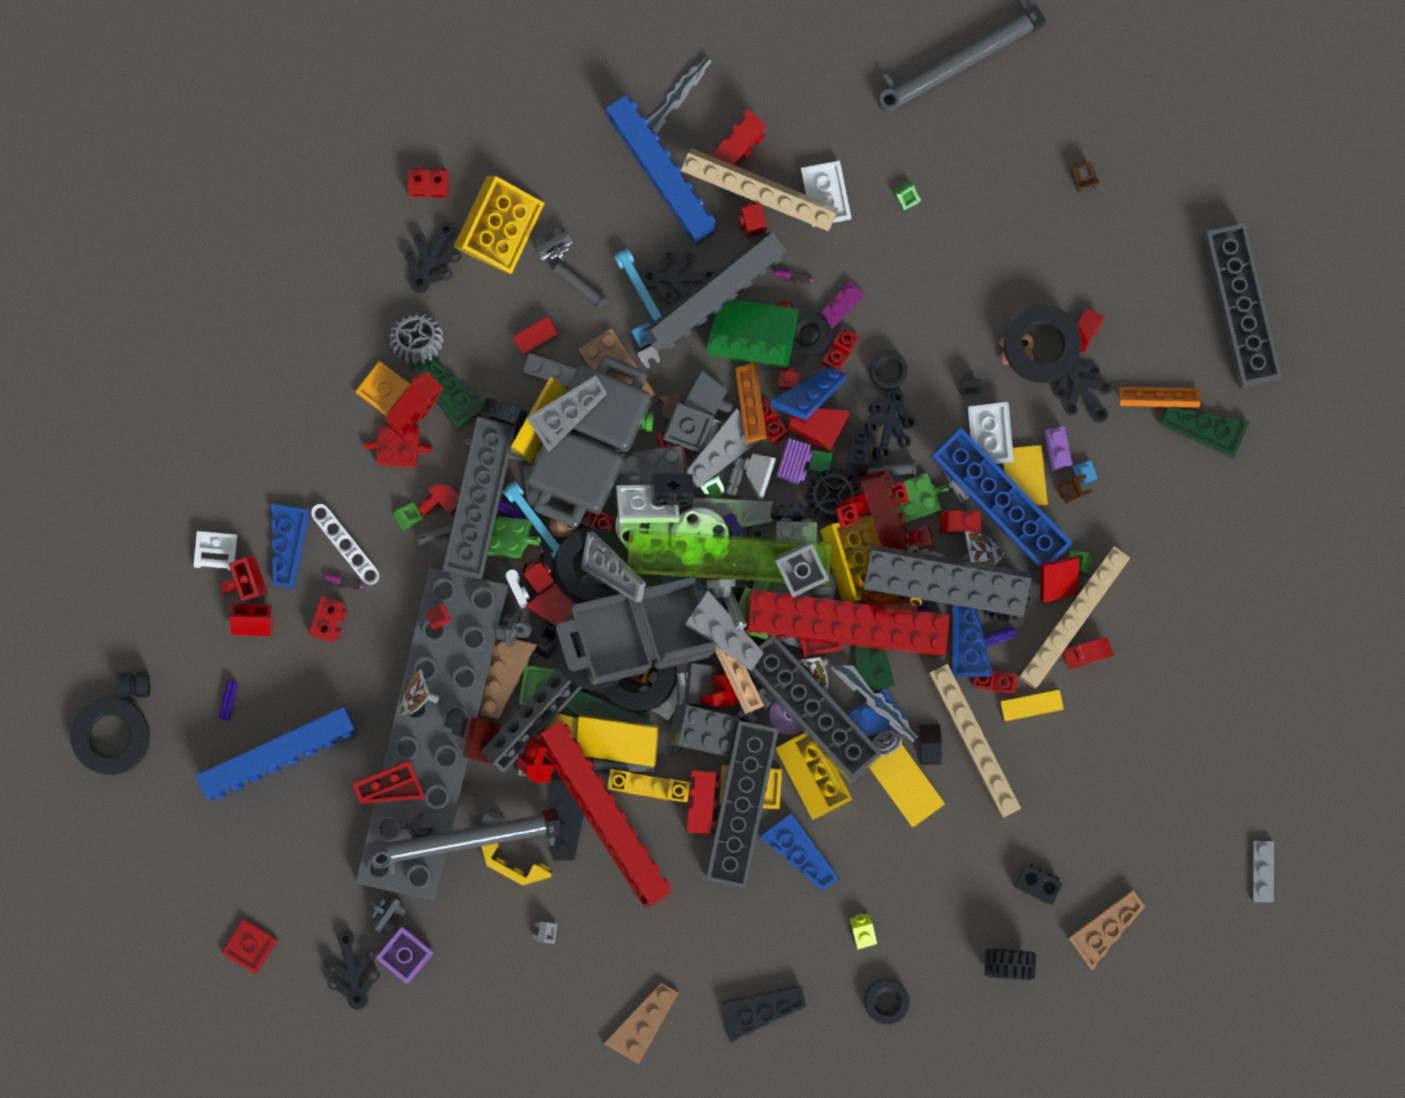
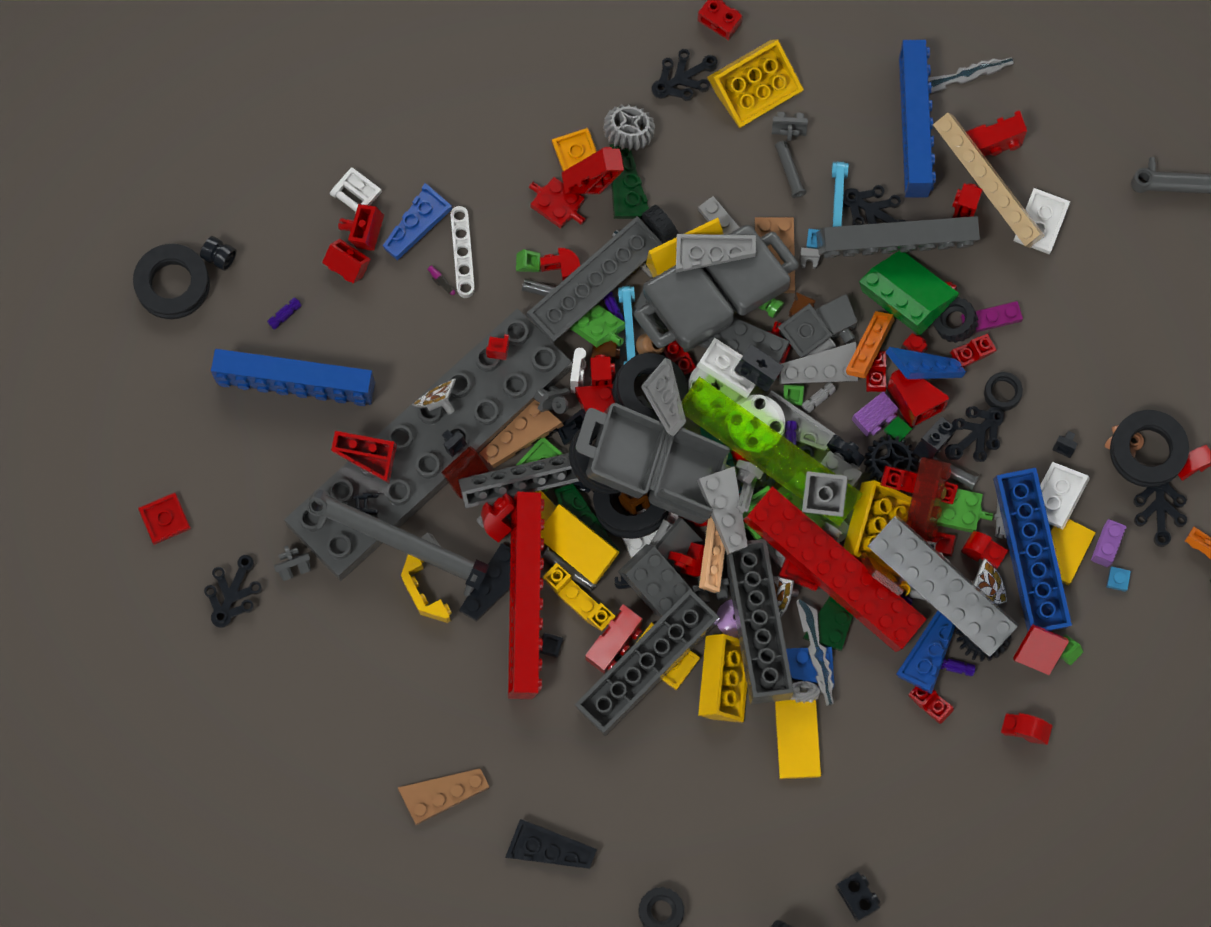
camera: 35 degrees right, 10 degrees down
(328, 619) = (407, 300): red brick -> none
(405, 955) = (284, 605): medium lavender brick -> none
(535, 335) = (728, 185): red slope -> none
(546, 933) = (413, 664): light grey tile -> none
(650, 839) = (551, 645): none -> black tile
(759, 472) = (841, 405): white slope -> none
(793, 276) = (972, 270): piece -> none
(798, 848) = (670, 733): blue wing -> none
(863, 931) = (680, 837): neon yellow bracket -> none
(906, 195) = (1109, 264): bright green slope -> none
(930, 744) = (840, 719): black slope -> none
(974, 741) = (880, 739): tan brick -> none
(1031, 705) = (949, 742): yellow tile -> none
(1072, 490) = (1098, 584): reddish brown window -> none
(1074, 617) = (1033, 691): tan brick -> none

